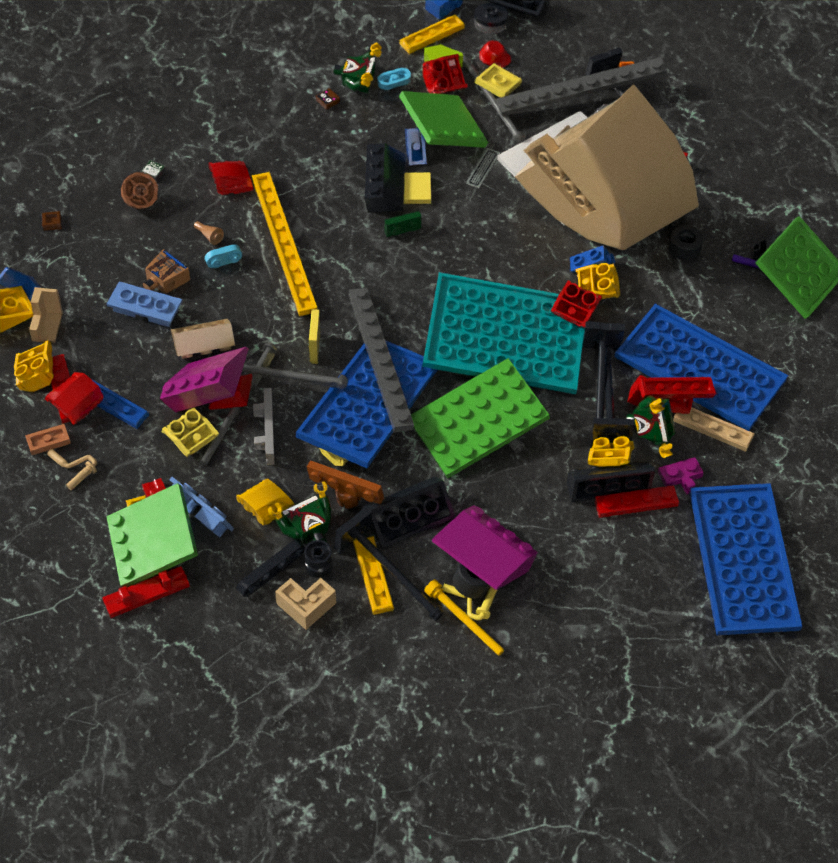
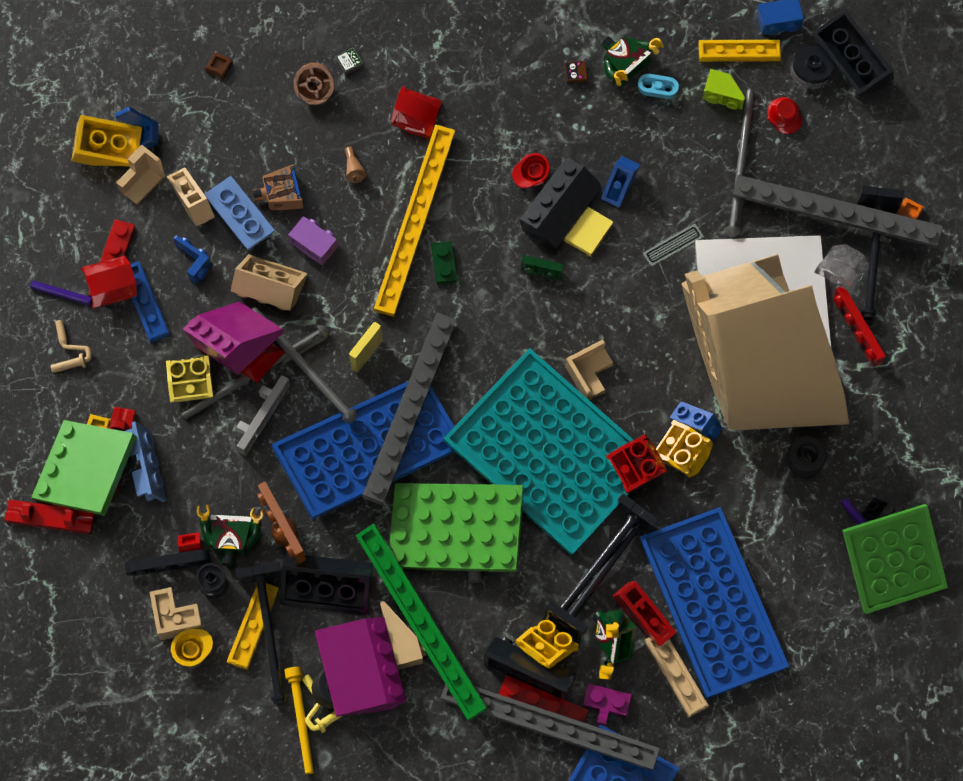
camera: 35 degrees right, 15 degrees up
(21, 435) = (61, 292): none -> dark purple bar
(34, 368) = (97, 224): yellow slope -> none
(47, 439) = (64, 308): nougat plate -> none
(98, 312) = (191, 197): none -> tan slope
(128, 347) = (200, 266): none -> blue bracket
(216, 293) = (313, 240): none -> medium lavender brick
(223, 256) = (354, 204): medium azure plate -> none
(263, 496) = (209, 489): yellow slope -> none
(277, 543) = (189, 542): none -> red plate
(327, 259) = (443, 263): none -> dark green plate
(338, 614) = (191, 647): none -> yellow piece
(346, 168) = (531, 171): none -> red hat
(443, 75) = (711, 110): red slope -> none
(443, 119) = (665, 169): bright green plate -> none
(486, 267) = (584, 367): none -> tan panel
(498, 81) = (762, 151): light yellow tile -> none
(506, 492) = (422, 622): none -> green plate
(507, 515) = (403, 641): none -> tan slope
(655, 507) = (565, 729): none -> dark grey plate
(677, 387) = (660, 616): red plate -> none

